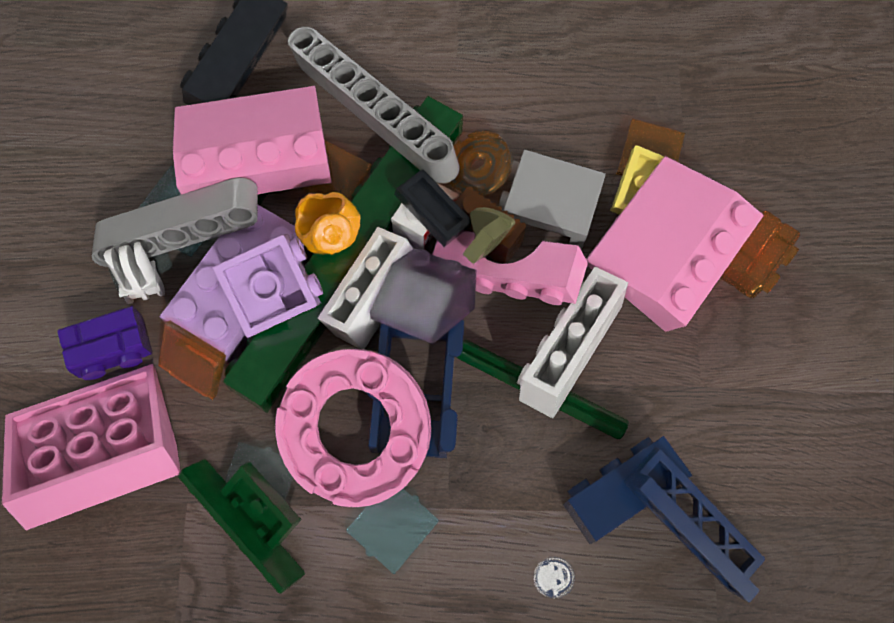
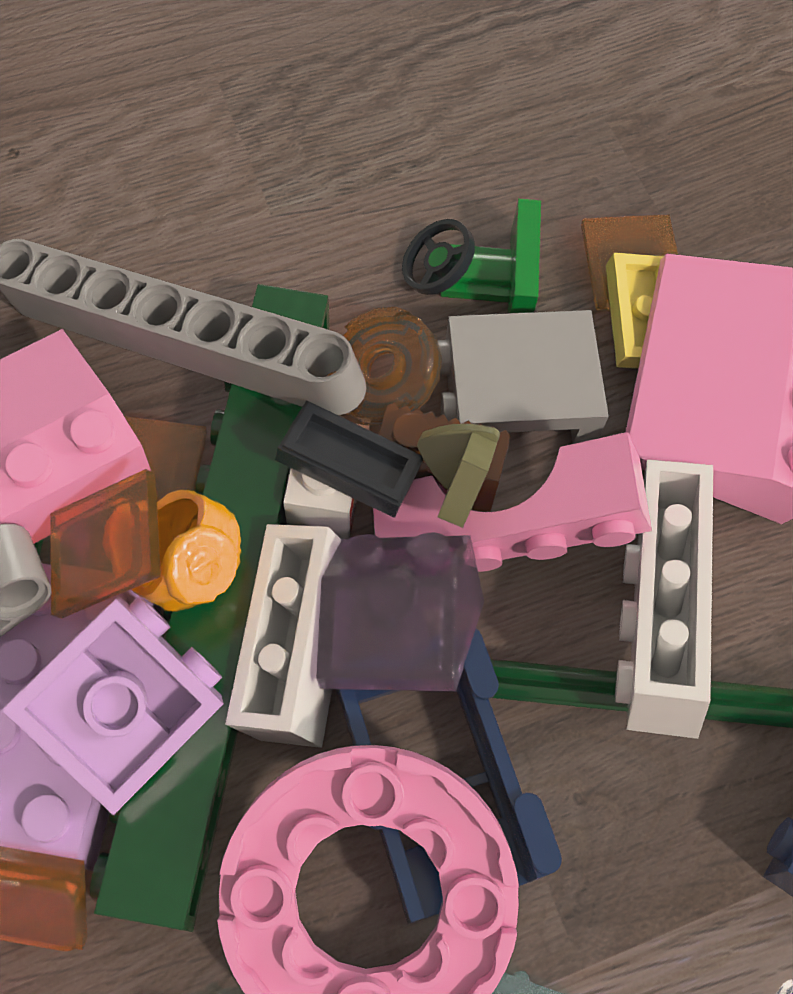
camera: 25 degrees left, 5 degrees down
(290, 206) = (104, 544): none -> clear orange piece
(559, 129) = (482, 271): none -> green piece

